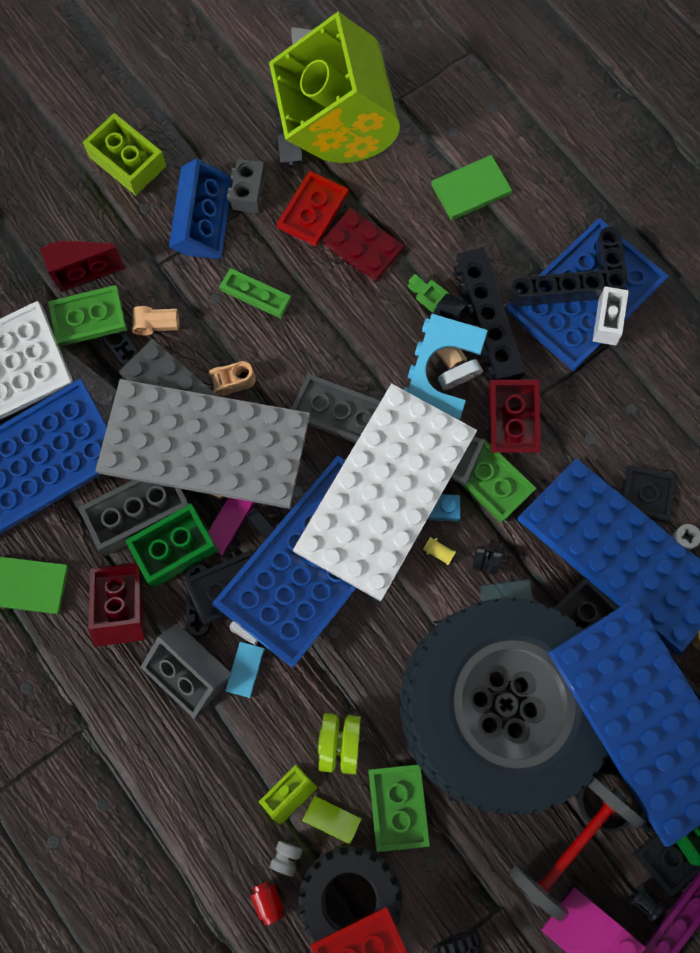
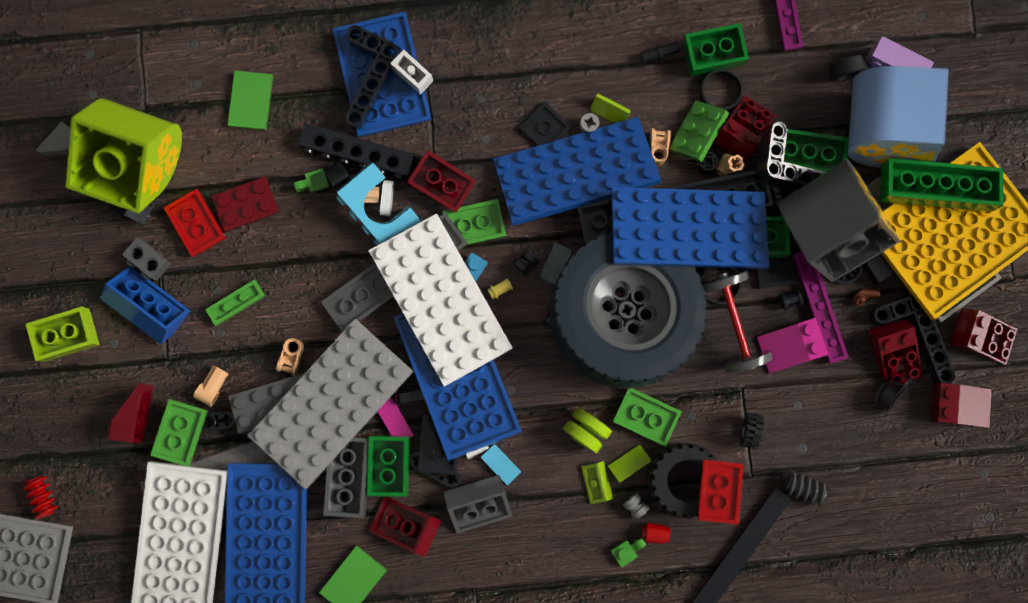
camera: 65 degrees left, 10 degrees up
(225, 879) = (626, 553): none -> bright green plate

